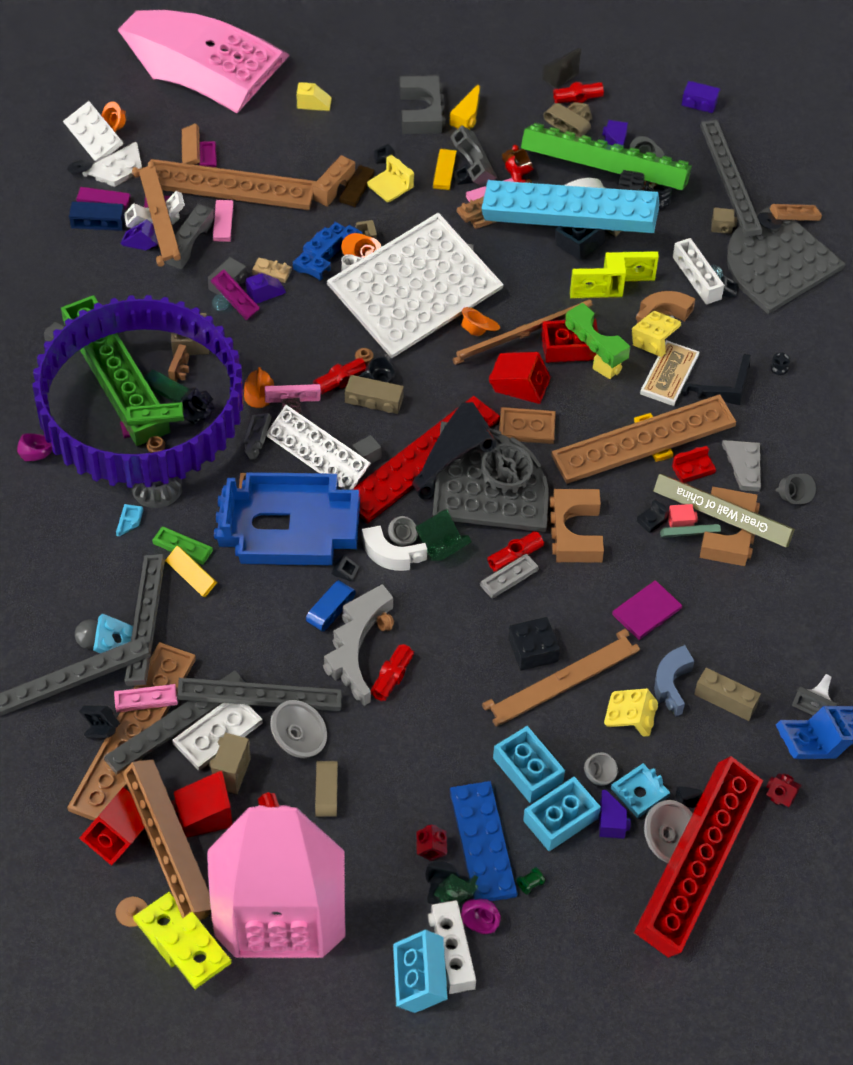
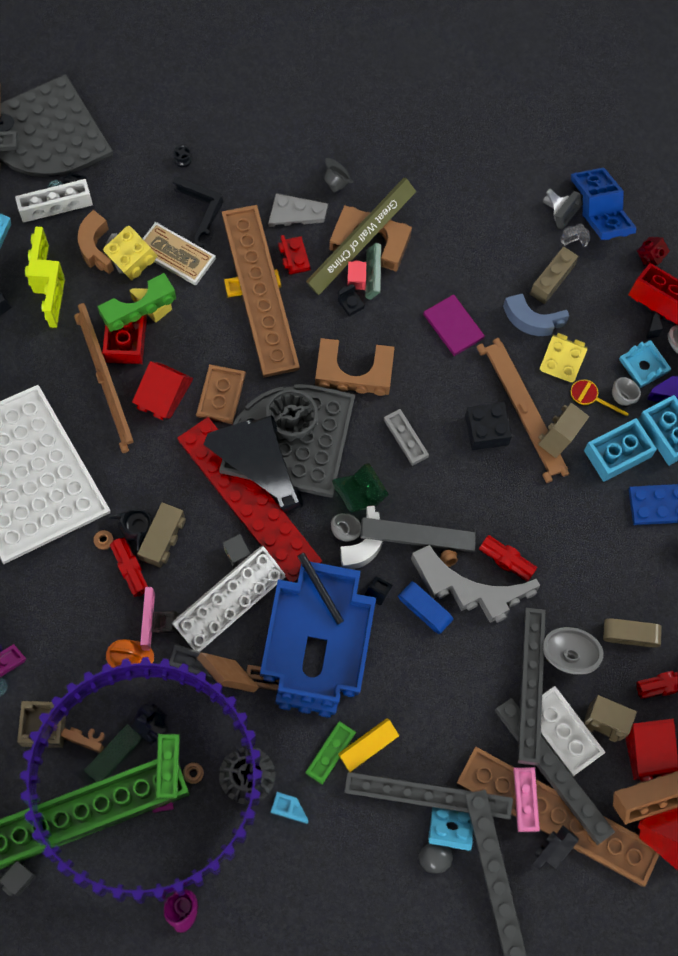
camera: 85 degrees left, 15 degrees up
(243, 445) = (227, 672): none -> medium nougat tile
(333, 509) = (320, 588): none -> black bar
(402, 589) = (417, 535): none -> dark grey tile
(477, 323) = (82, 418): orange piece -> none
(523, 546) = (374, 417): red piece -> none
(537, 703) = (563, 429): none -> dark tan container
(595, 738) = (586, 392): none -> piece
(784, 709) = (574, 233): none -> clear bracket

